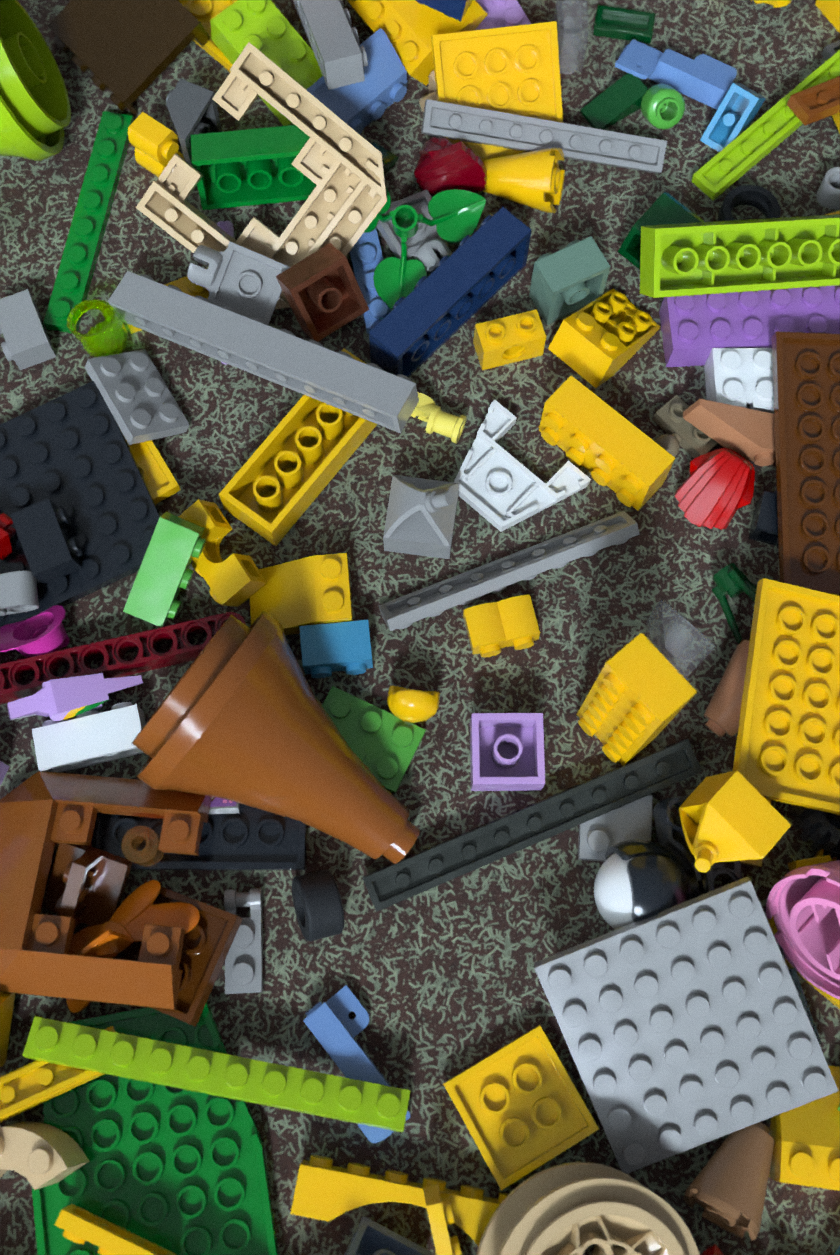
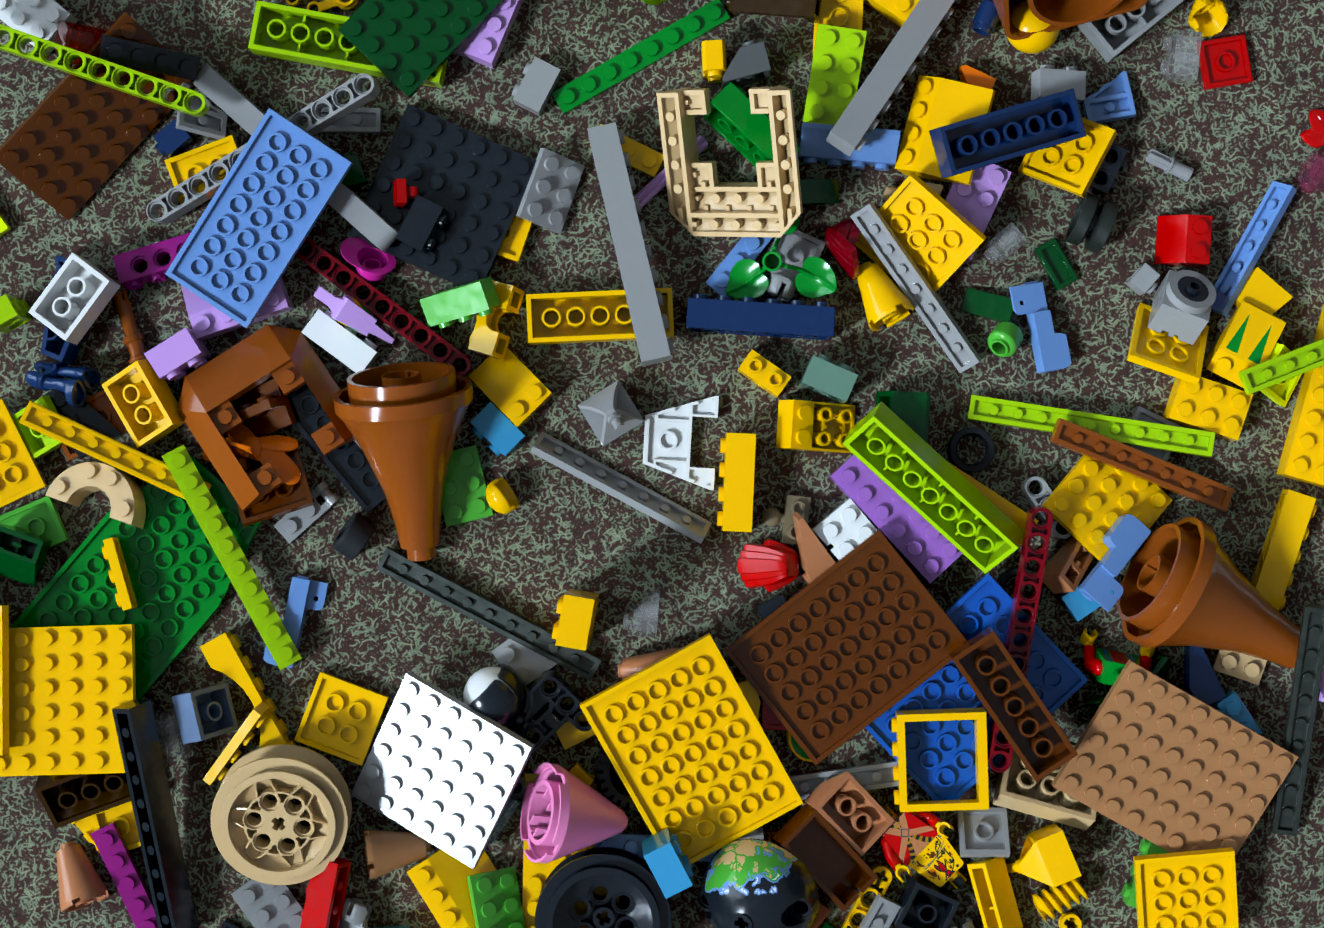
camera: 55 degrees right, 15 degrees up
(104, 338) = (576, 134): clear neon green helmet -> none
(150, 854) = (314, 419): clear orange brick -> none
(238, 279) = (666, 189): light grey plate -> none
(322, 292) = (698, 244): copper brick -> none
(438, 420) = (680, 374): light yellow connector -> none
(501, 625) = (585, 509): yellow brick -> none
(507, 752) = (513, 569): lavender brick -> none
(729, 821) = (555, 715): yellow piece -> none
(732, 116) = (1036, 387): dark azure slope -> none
(732, 582) = (716, 616): dark green plant -> none

